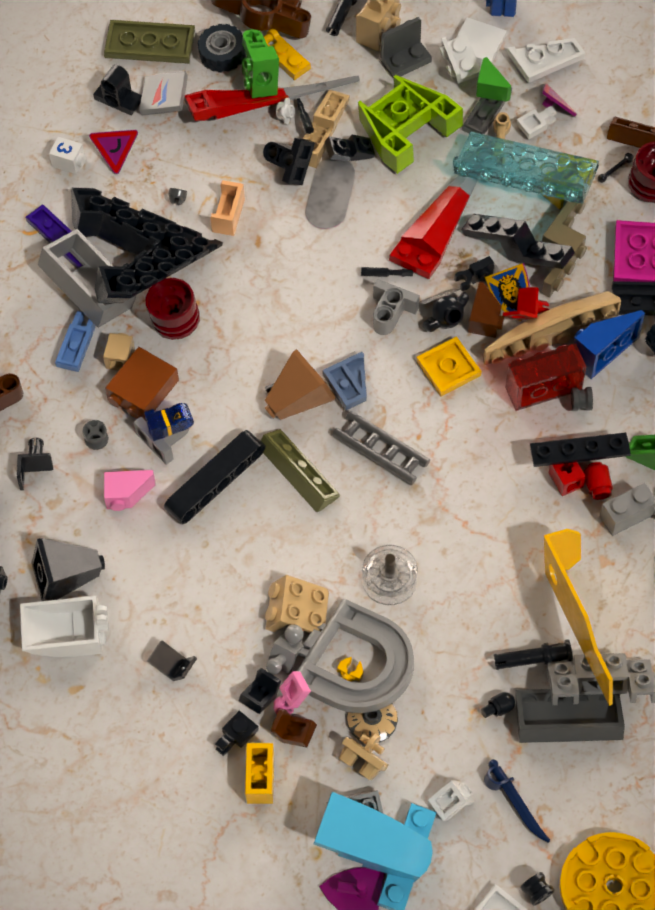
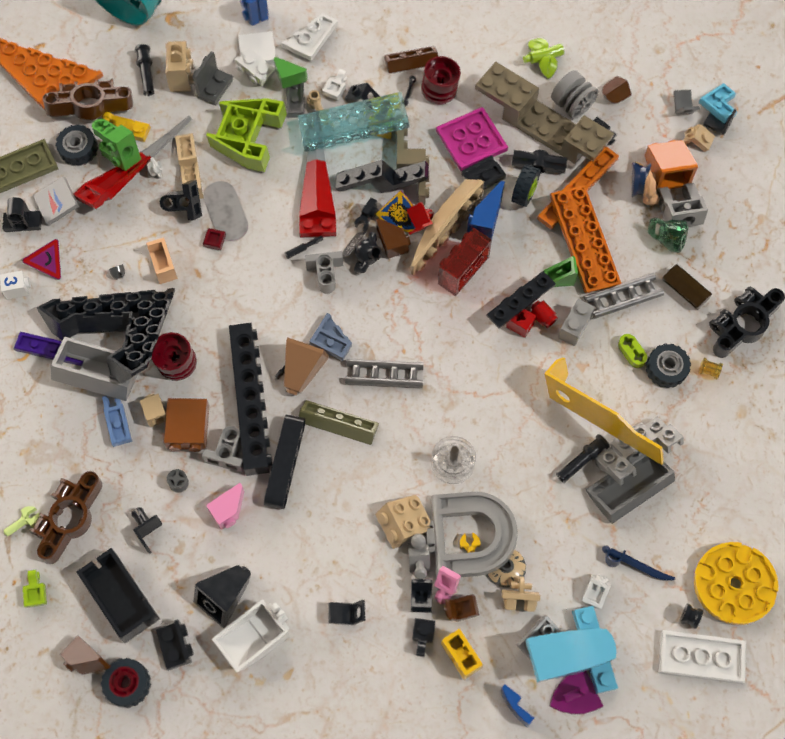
camera: 35 degrees left, 5 degrees up
(169, 420) = (229, 441): clear blue leg -> none
(253, 324) = (252, 463): none -> black brick
(282, 856) = (512, 699): none -> blue slope
(298, 215) = (214, 239): none -> dark red tile
(305, 118) = (172, 165): black piece -> none
(349, 150) = (222, 169): black slope -> none
(448, 366) = (391, 290): yellow tile -> none
(499, 705) = (582, 506): black cylinder -> none
(552, 97) = (336, 64): magenta piece -> none
(558, 141) = (360, 92): none -> black bracket
(581, 398) = (495, 263): dark grey wheel -> none

